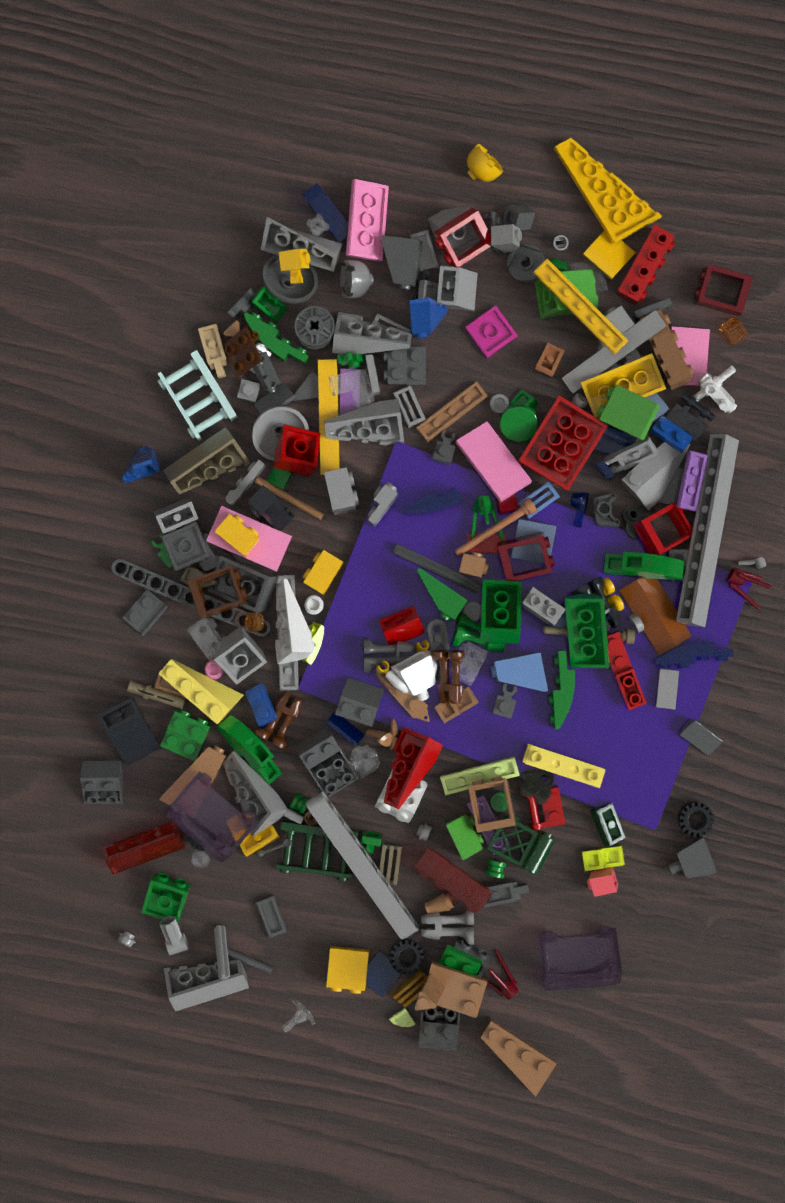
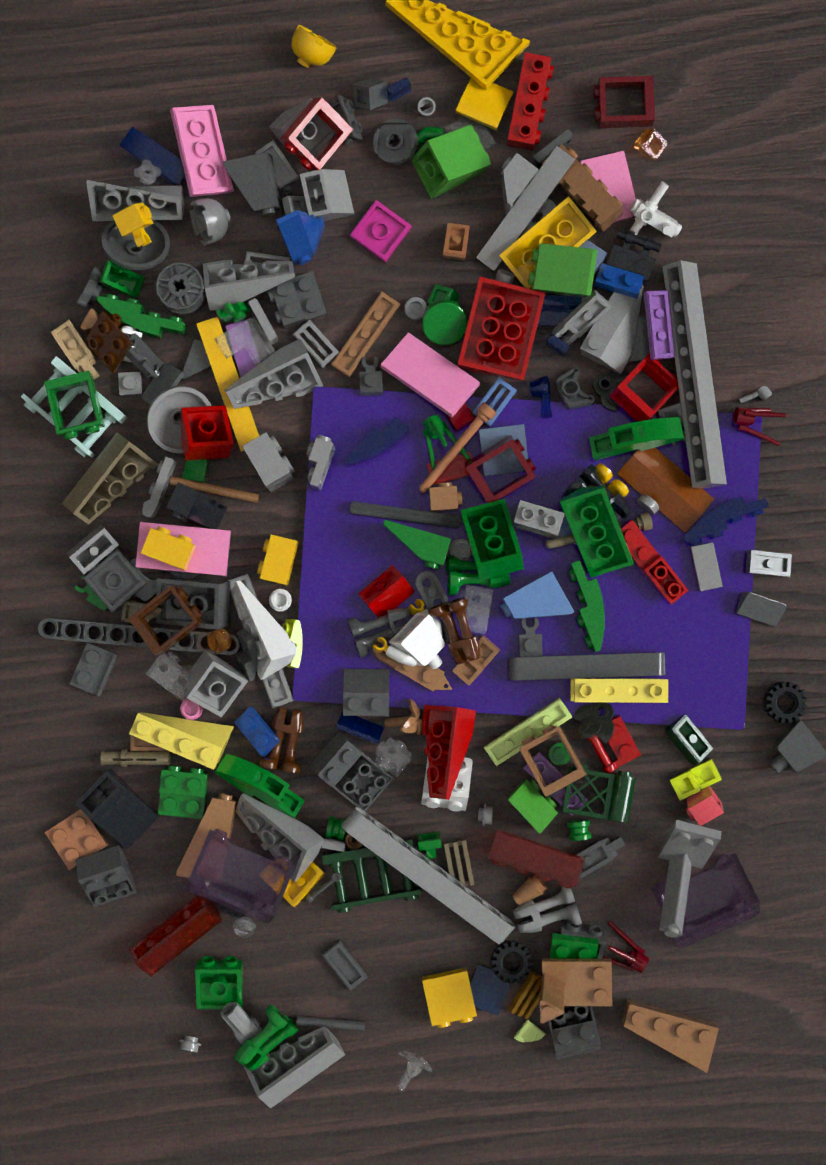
camera: 20 degrees left, 0 degrees up
(88, 744) = (76, 838): none -> nougat plate
(141, 465) = (36, 505): blue wedge -> none
(177, 961) = (255, 1050): none -> green piece
(194, 374) = (69, 382): none -> green window
(222, 952) = (301, 1025): light grey axle -> none
(272, 643) = (247, 657): none -> dark grey slope
(506, 237) = (363, 119): light grey slope -> none
(543, 221) = (399, 89): none -> clear blue tile
(544, 738) = (586, 666): none -> dark grey beam
(576, 910) = (685, 848): none -> light grey piece
(580, 306) = (471, 168): yellow tile -> none
(718, 702) = (768, 563): none -> plate

